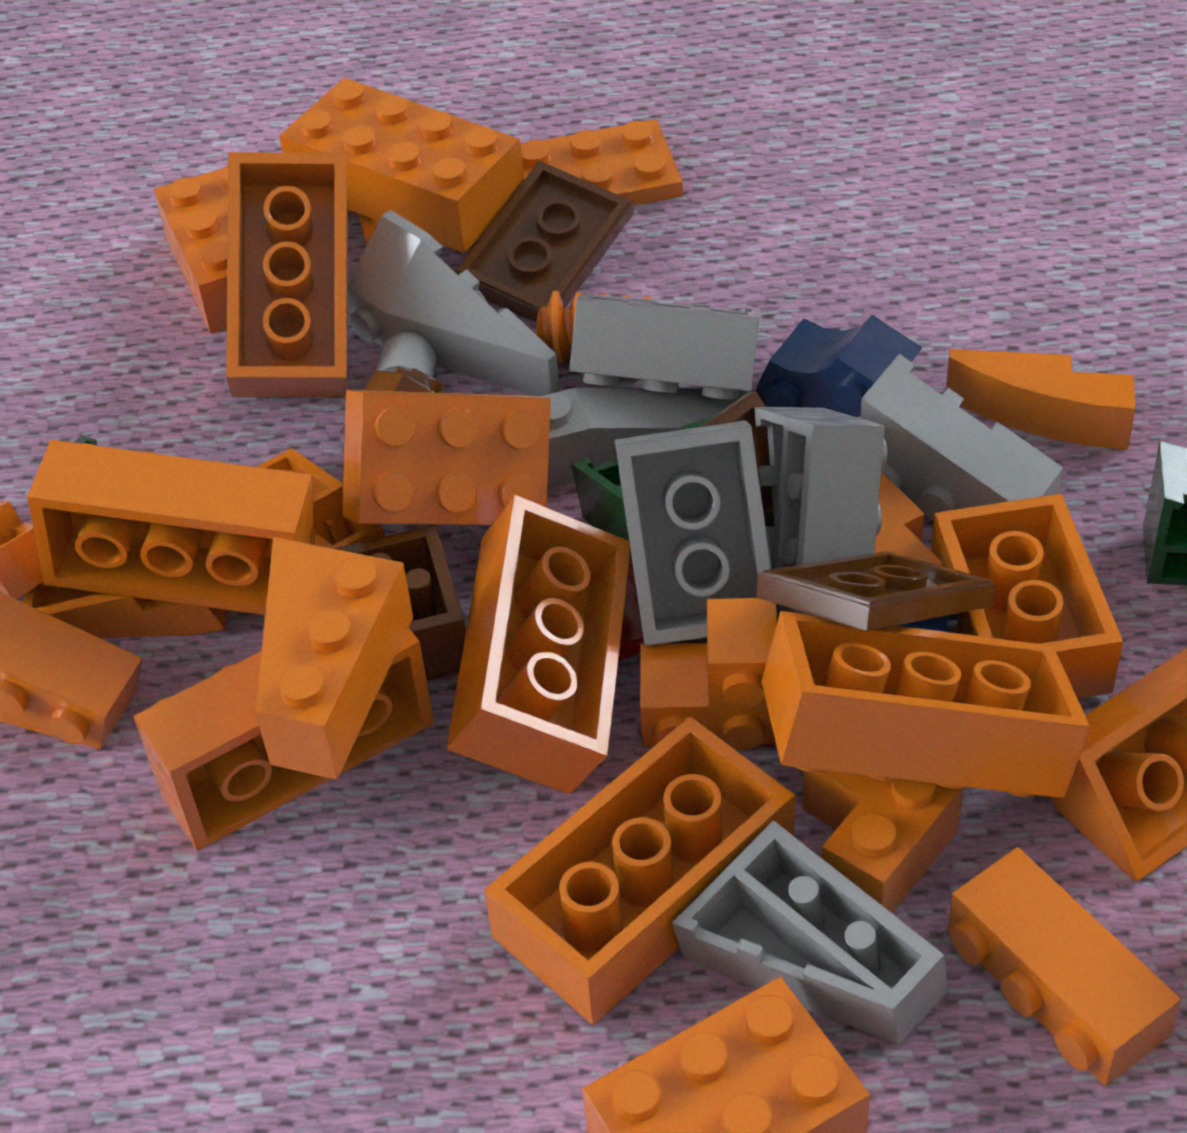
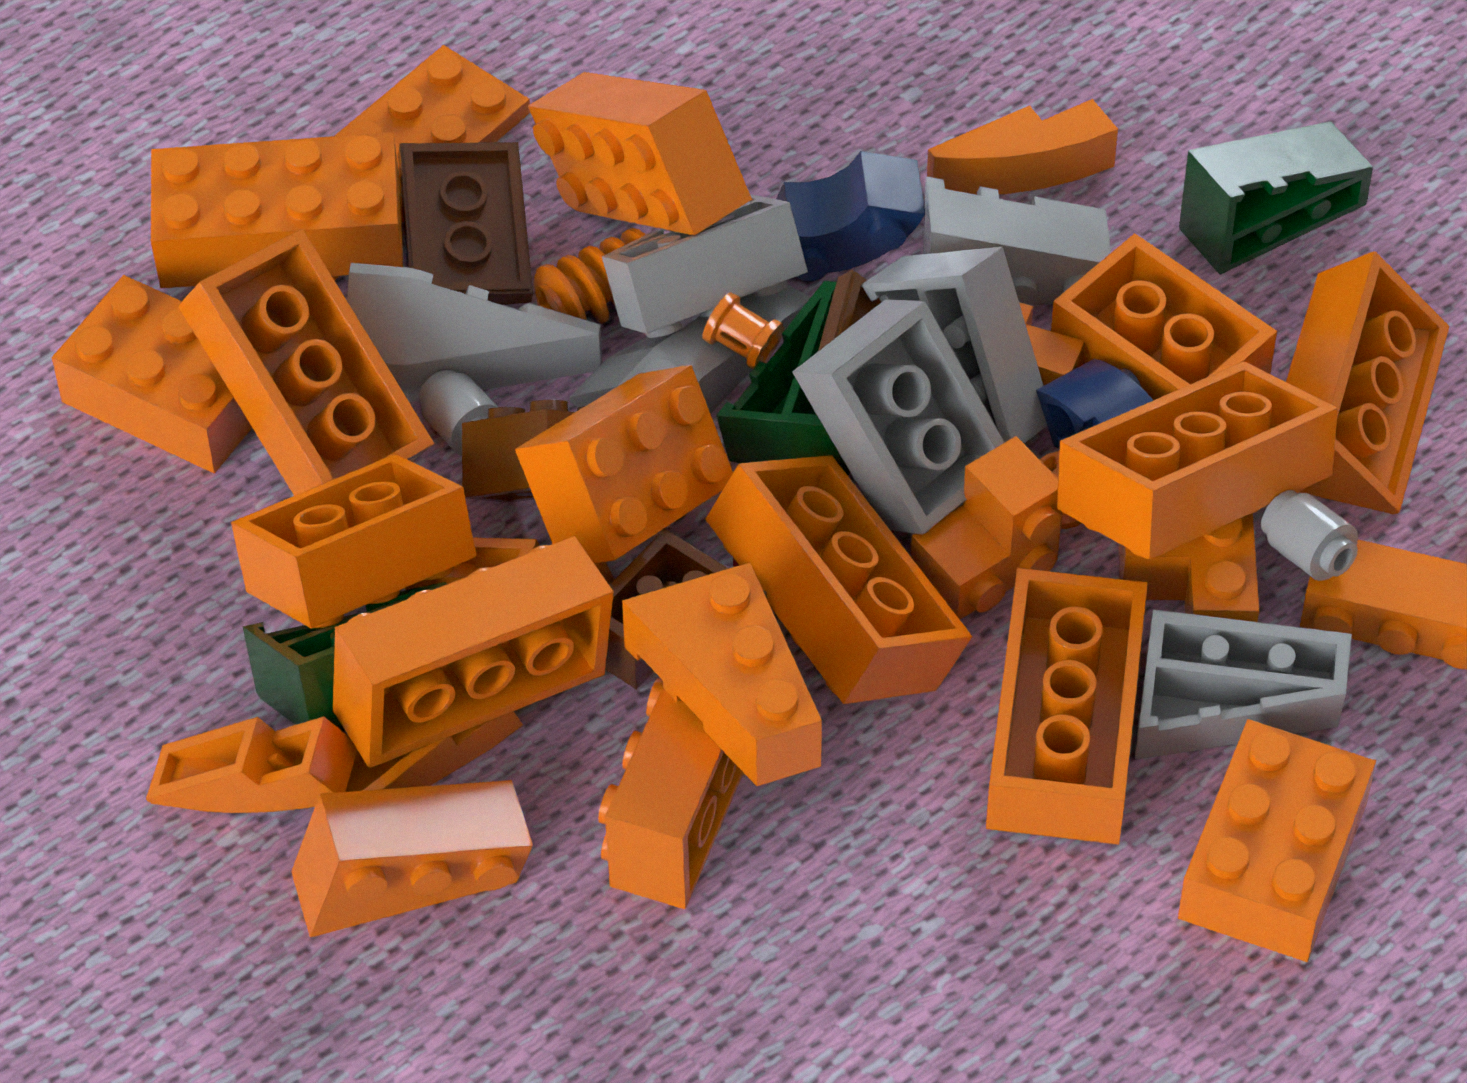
camera: 40 degrees left, 5 degrees up
(198, 407) = (354, 541): none -> orange brick
(647, 402) = (742, 330): none -> orange bush
(684, 233) = (639, 152): none -> orange brick
(875, 590) = (1090, 387): reddish brown tile -> none
(987, 839) = (1310, 534): none -> light grey brick

